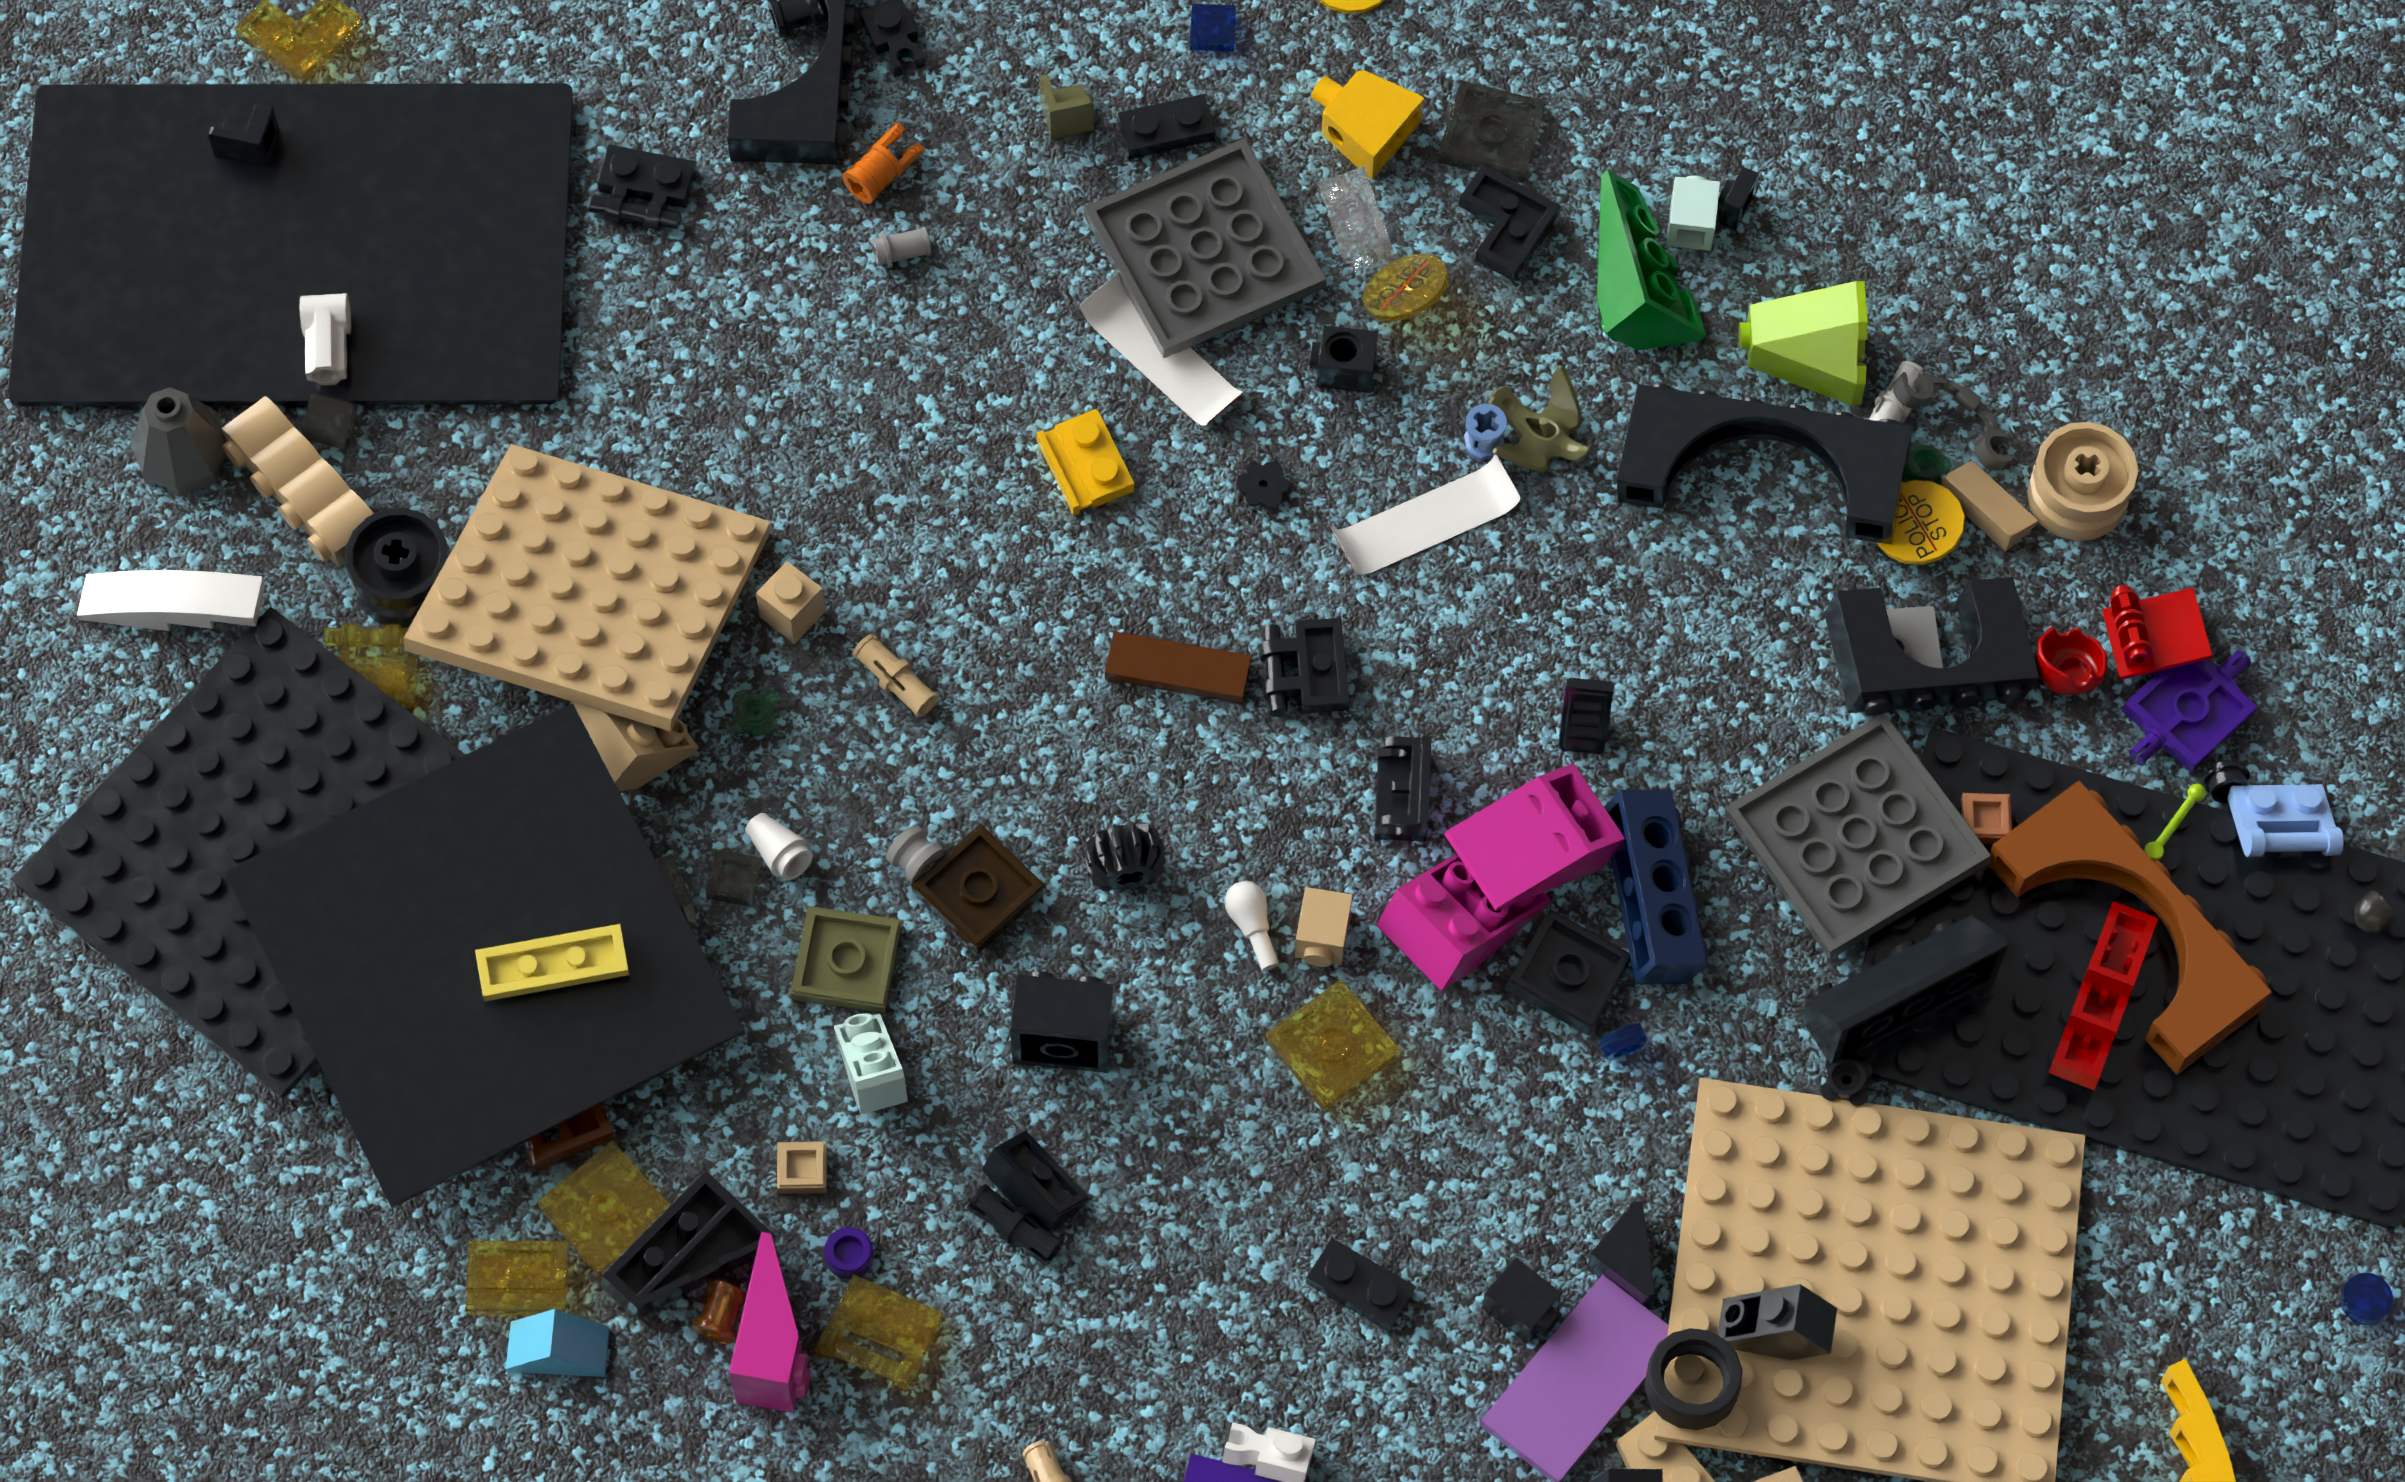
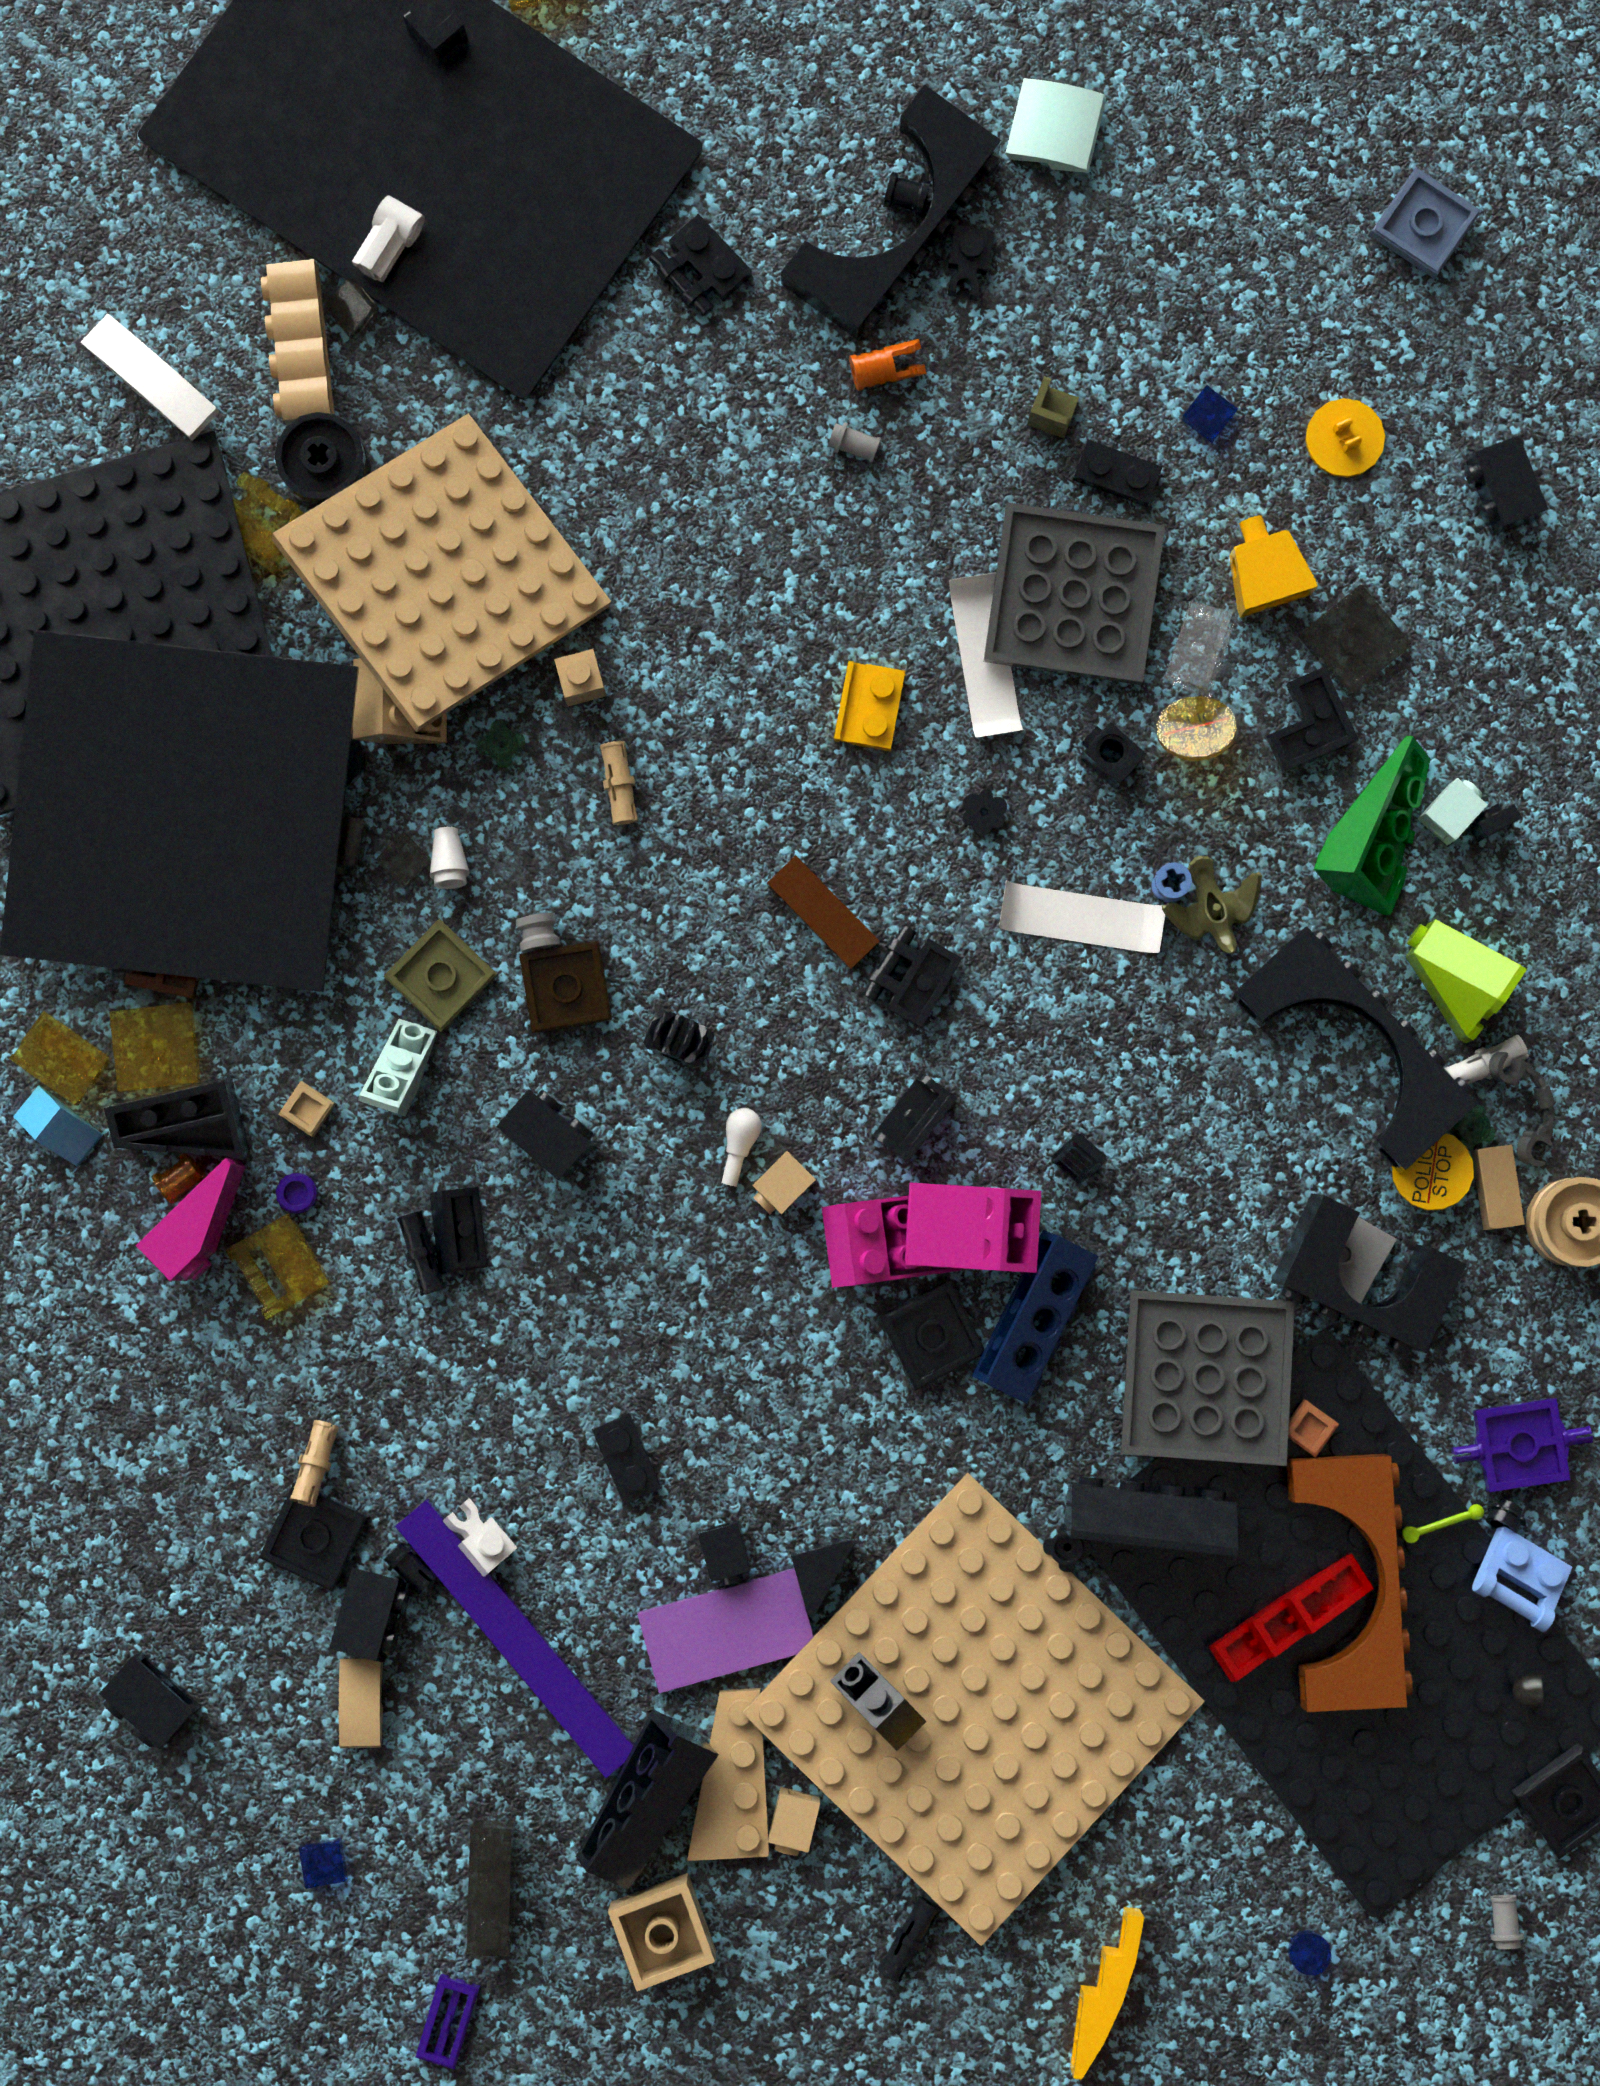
camera: 35 degrees right, 20 degrees up
(179, 442) = (234, 254): dark grey cone -> none
(552, 962) = (215, 856): light yellow plate -> none
(1332, 1045) = (728, 1274): clear yellow plate -> none
(1622, 1041) = (930, 1412): clear blue tile -> none
(1698, 1343) = (814, 1722): black tyre -> none
(2070, 661) = (1461, 1353): red hair -> none
(2155, 631) = (1540, 1373): red hinge -> none

